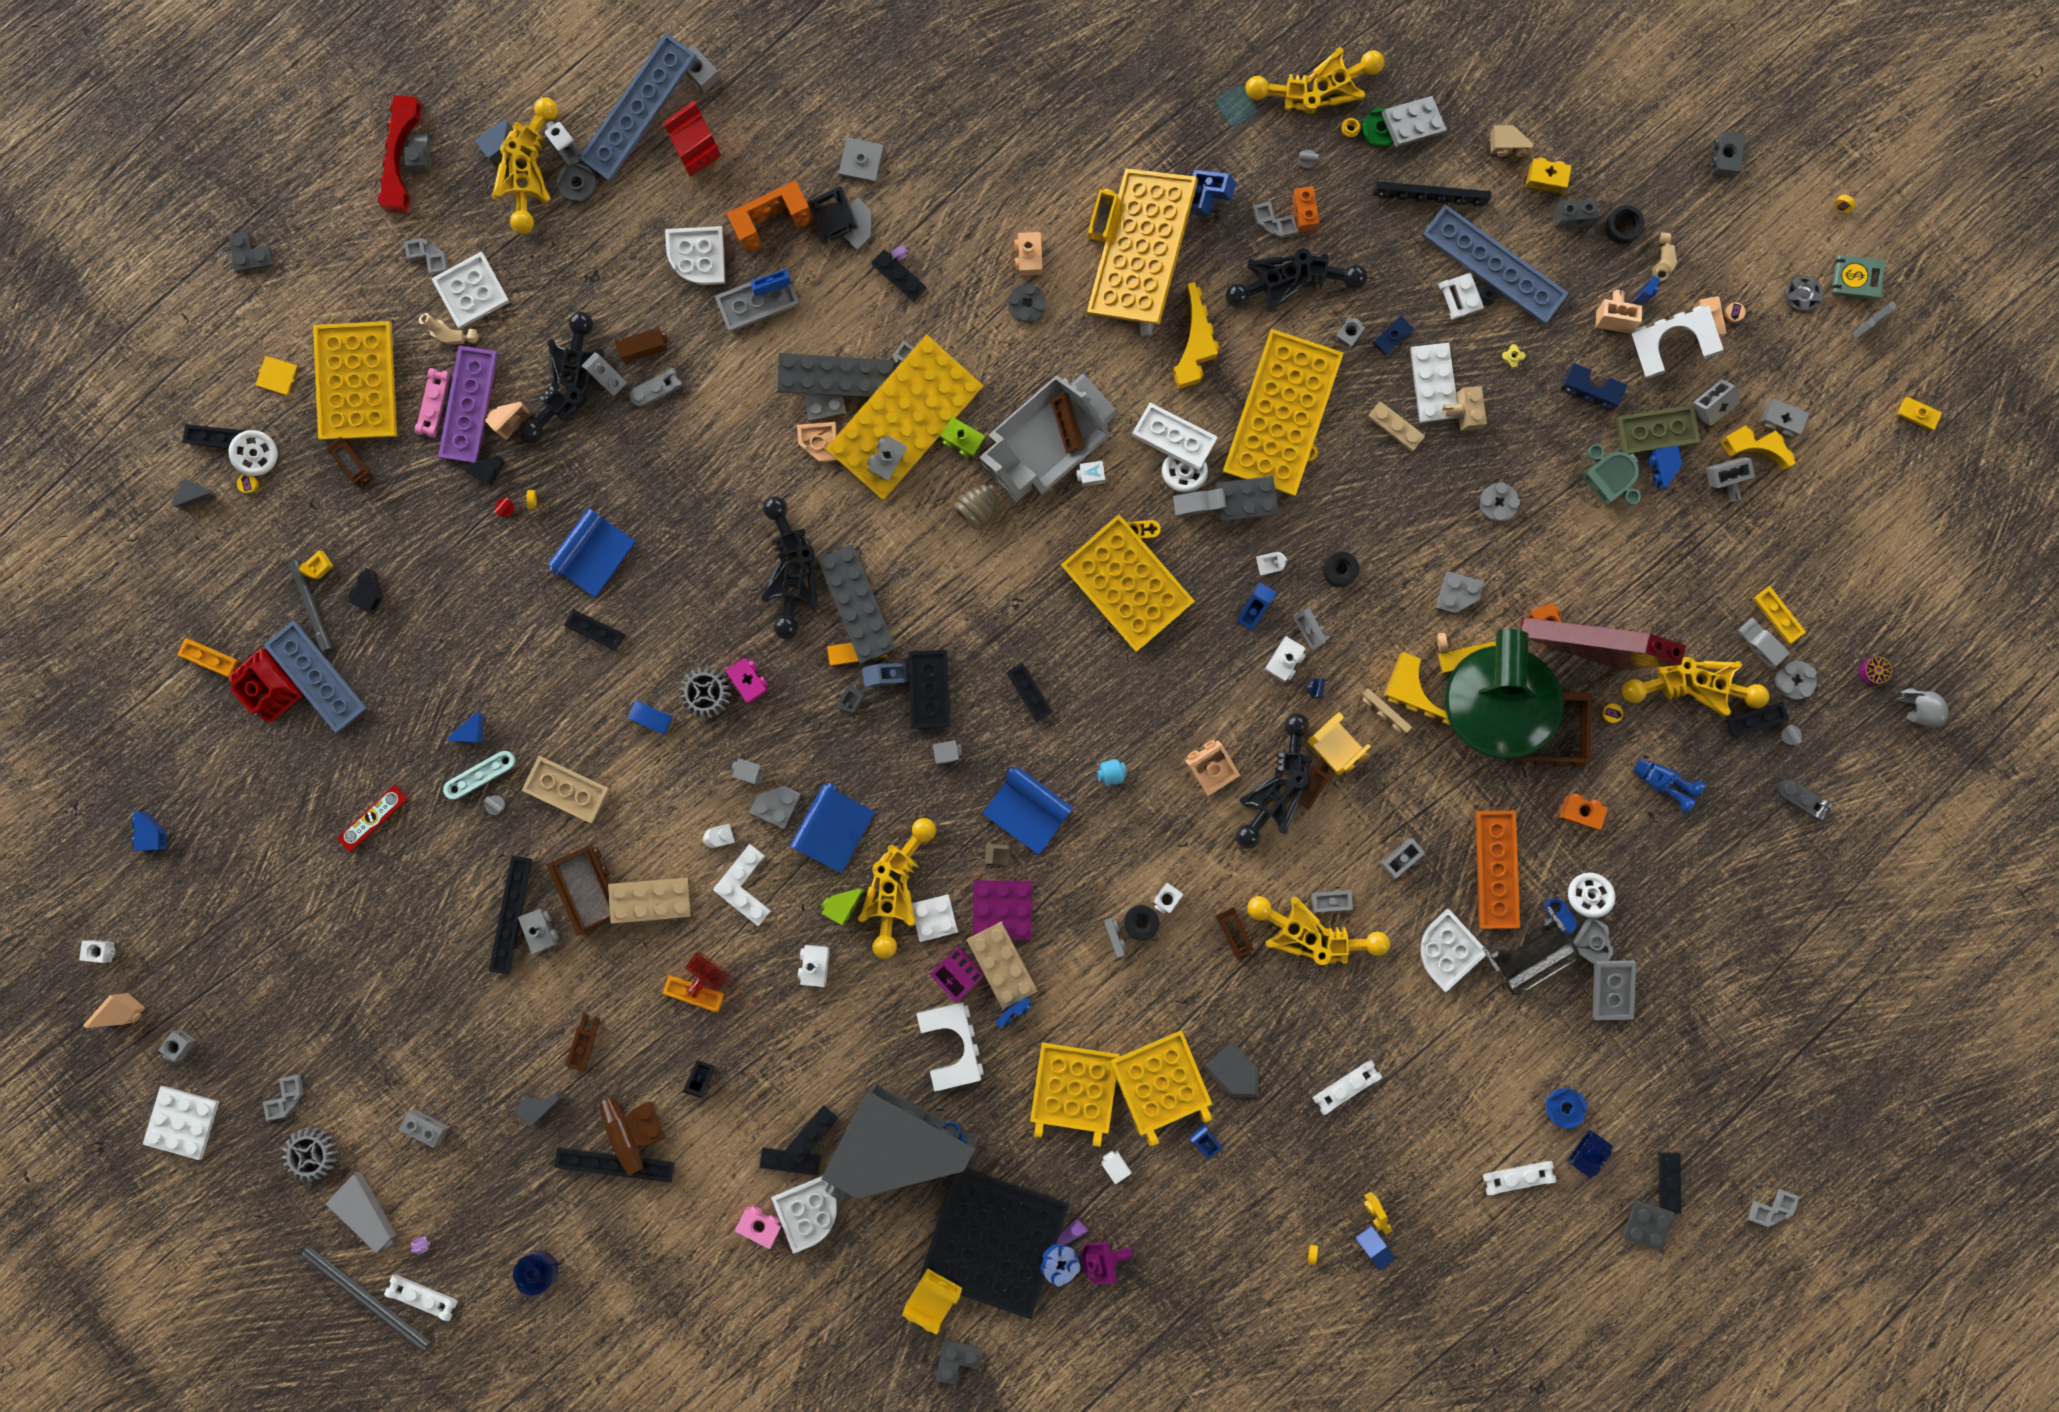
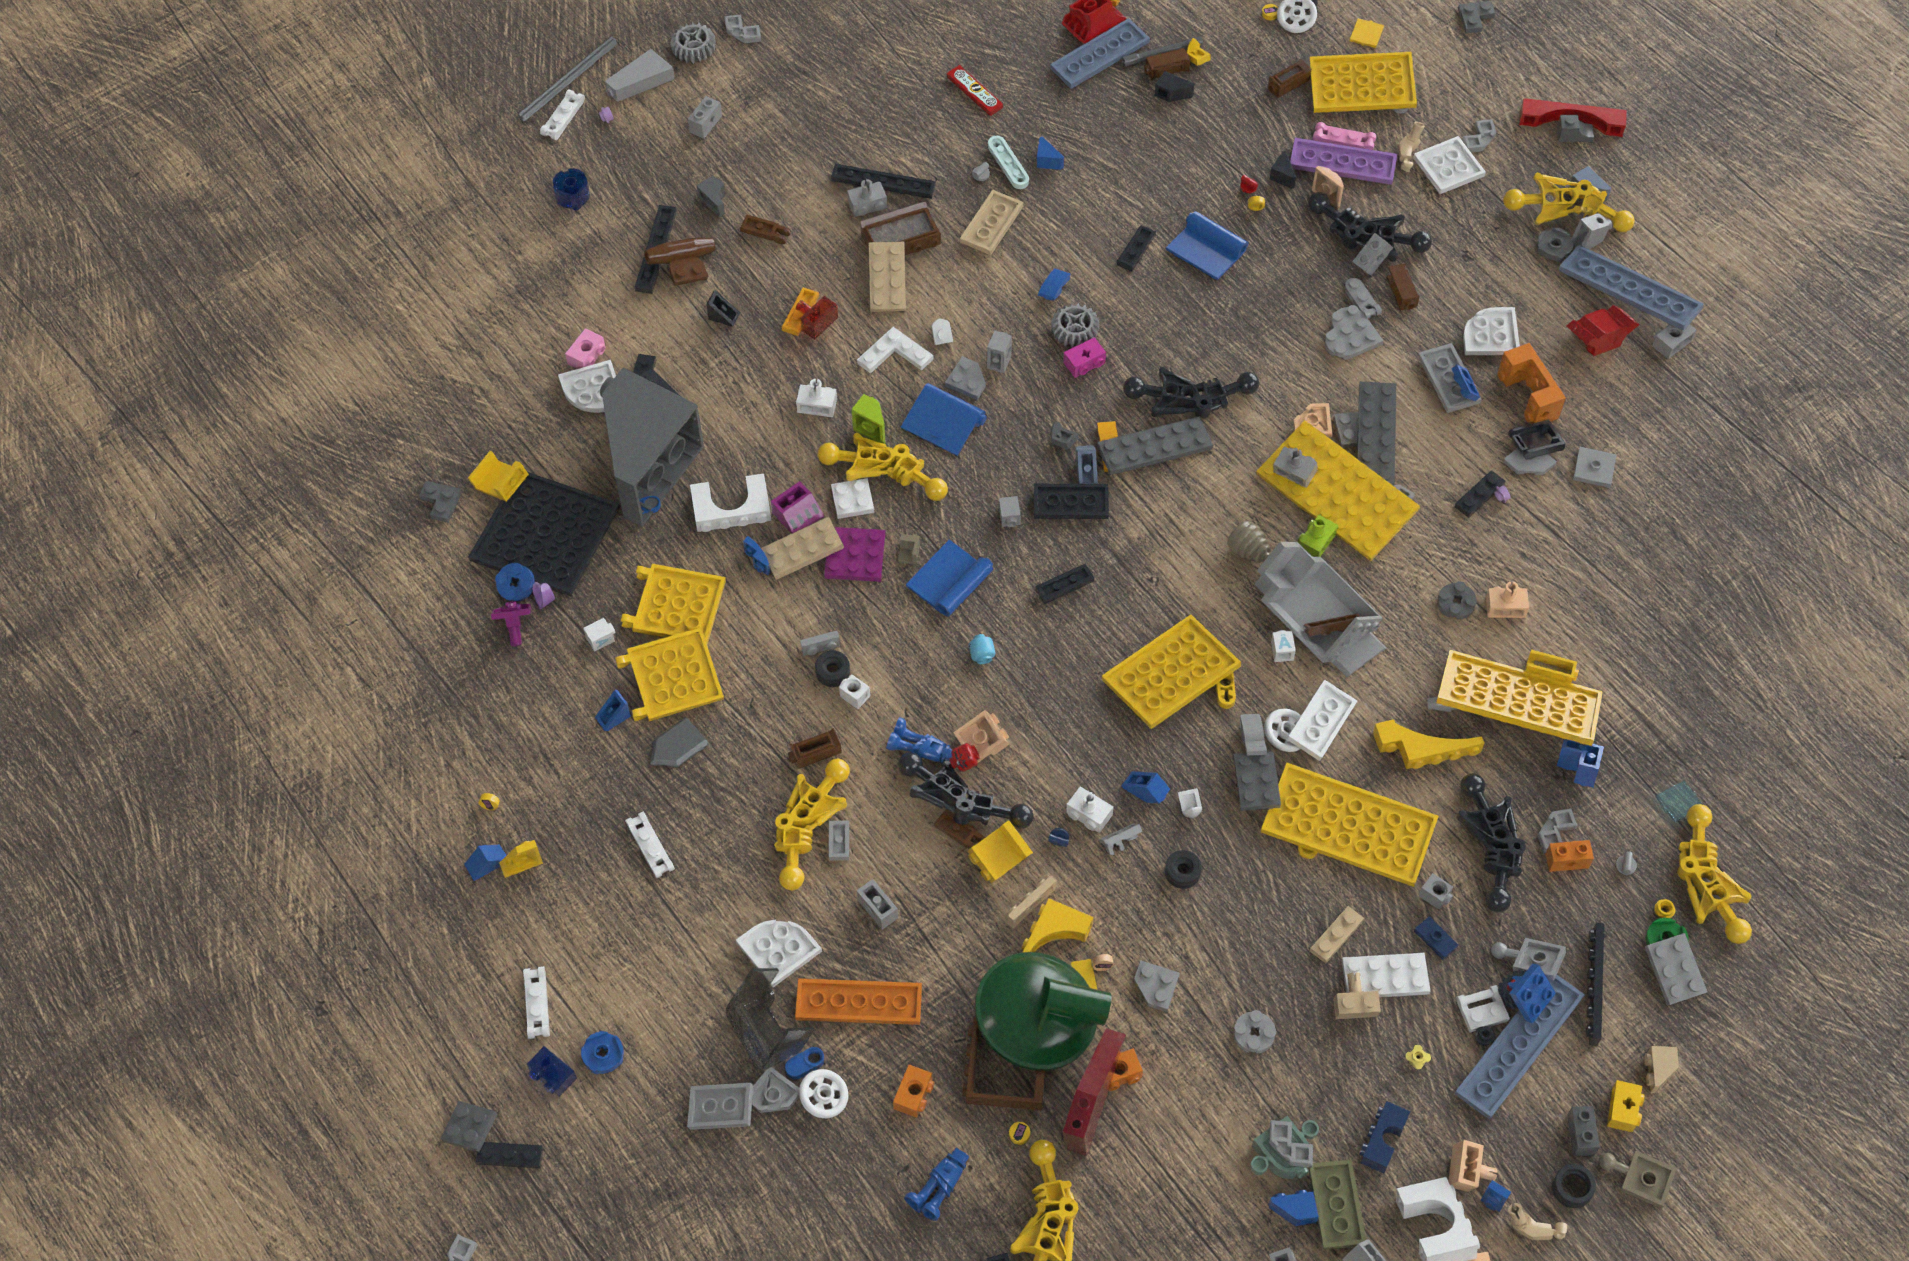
camera: 90 degrees right, 25 degrees down
(331, 599) = (1171, 62): none -> reddish brown window
(702, 400) = (1351, 334): none -> light grey plate
(1226, 819) = (926, 746): none -> blue piece
(1241, 782) = (964, 757): none -> red head
(1418, 255) = (1529, 952): none -> light grey plate
(1451, 256) = (1527, 991): none -> blue plate
(1603, 168) = (1634, 1183): none -> dark tan plate
(1623, 465) = (1293, 1153): none -> light grey tile

